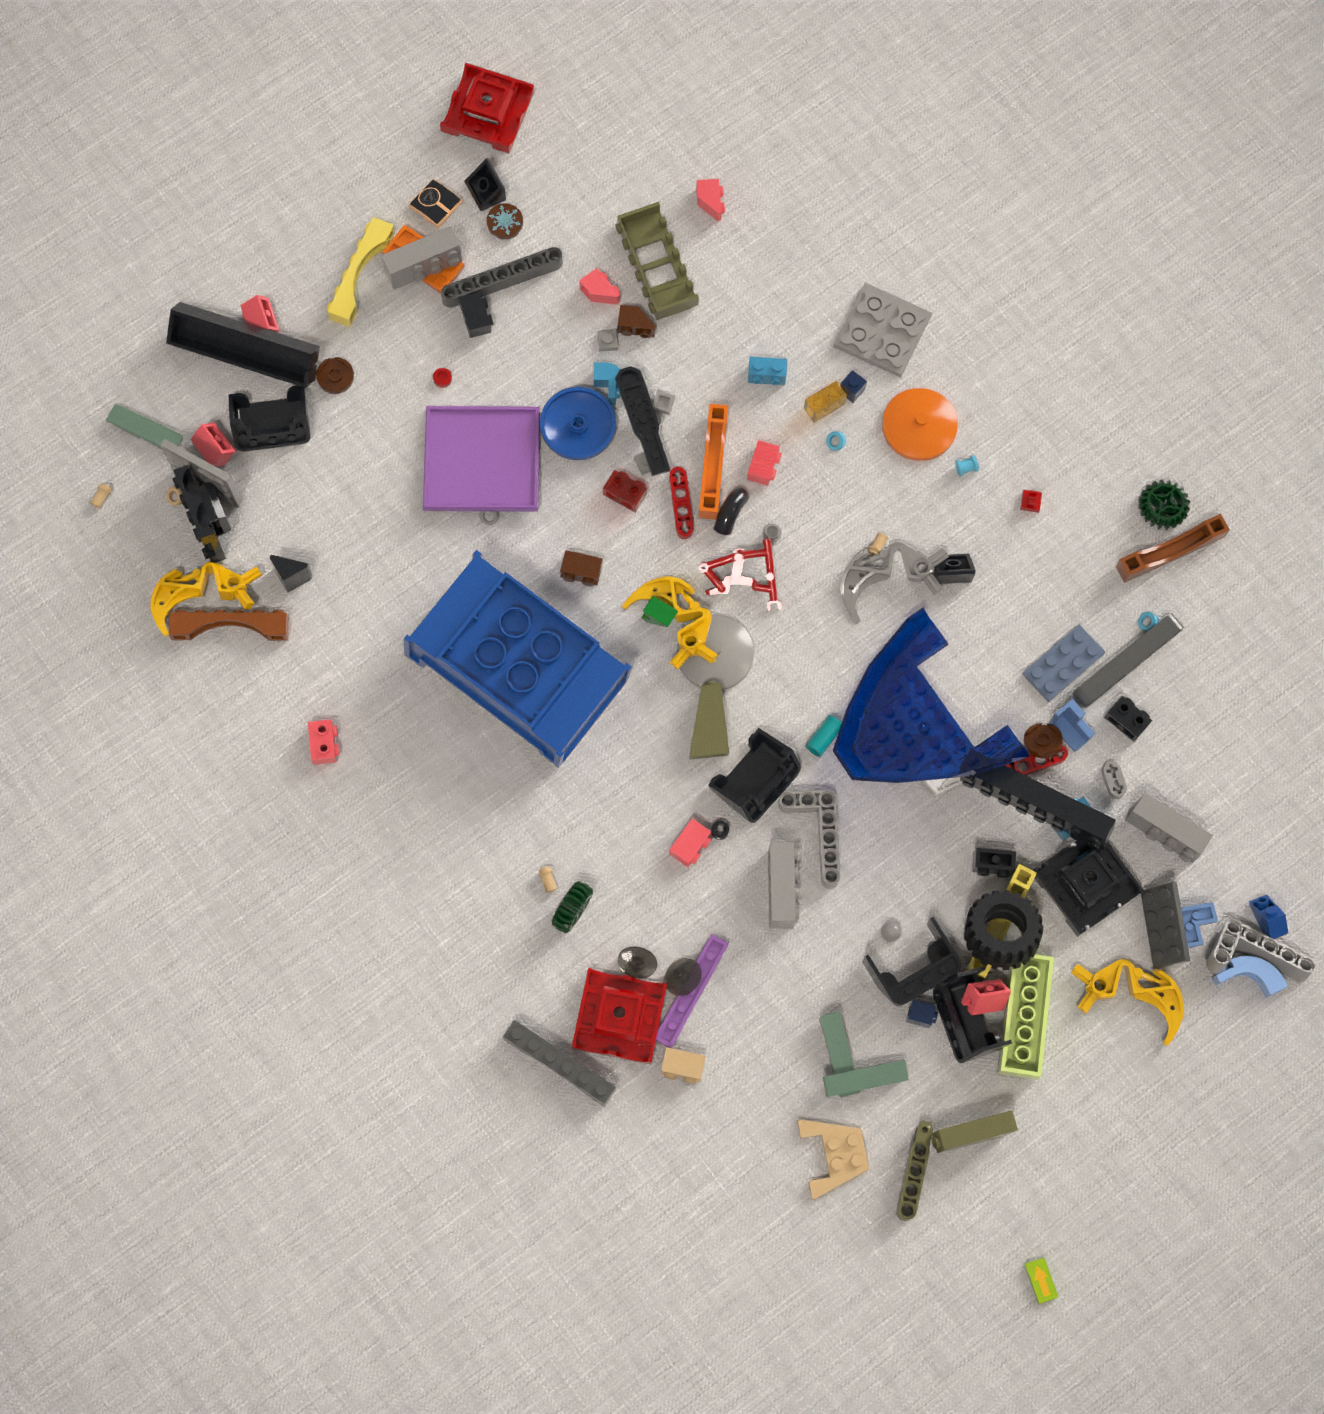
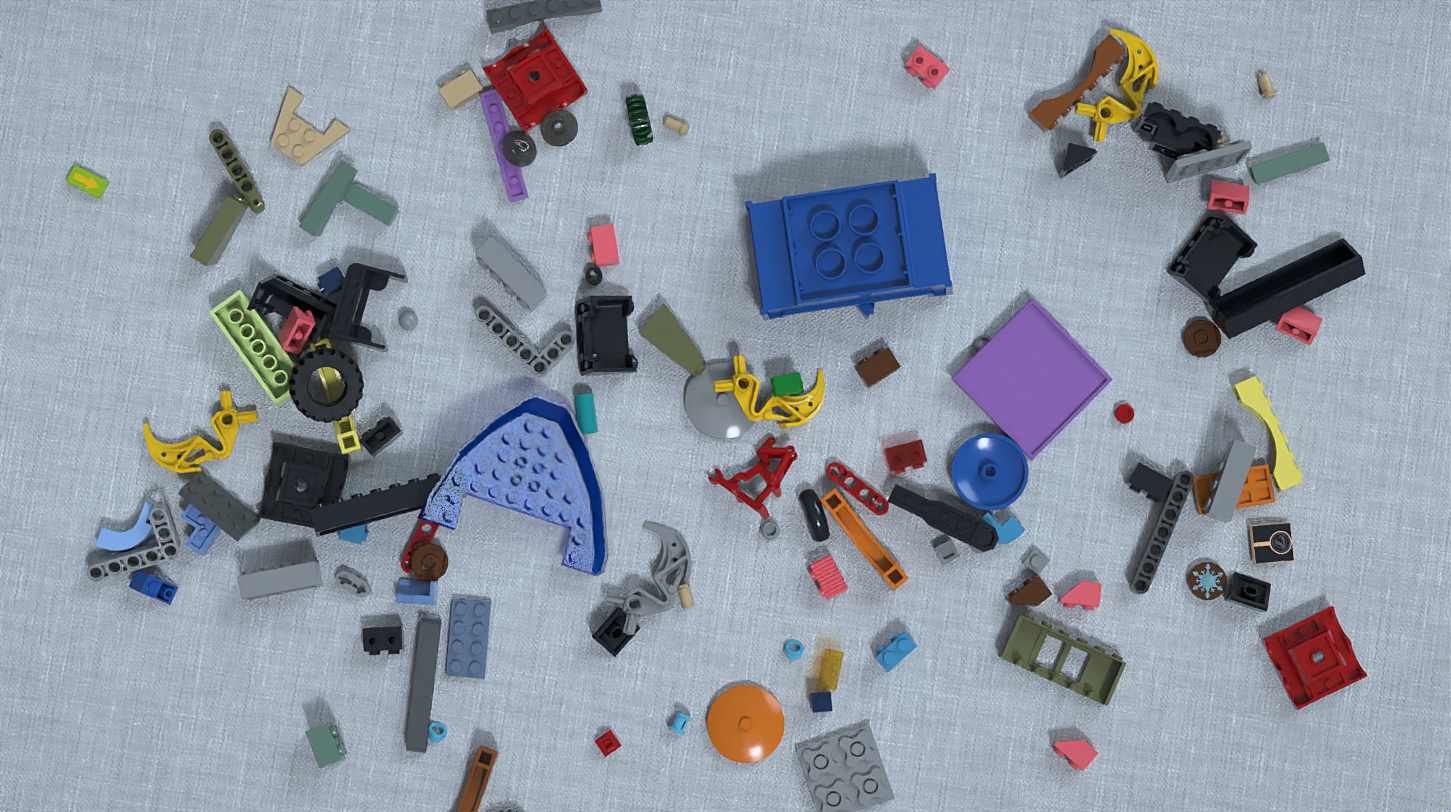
camera: 140 degrees right, 10 degrees up
(1240, 681) = (326, 744): none -> sand green brick

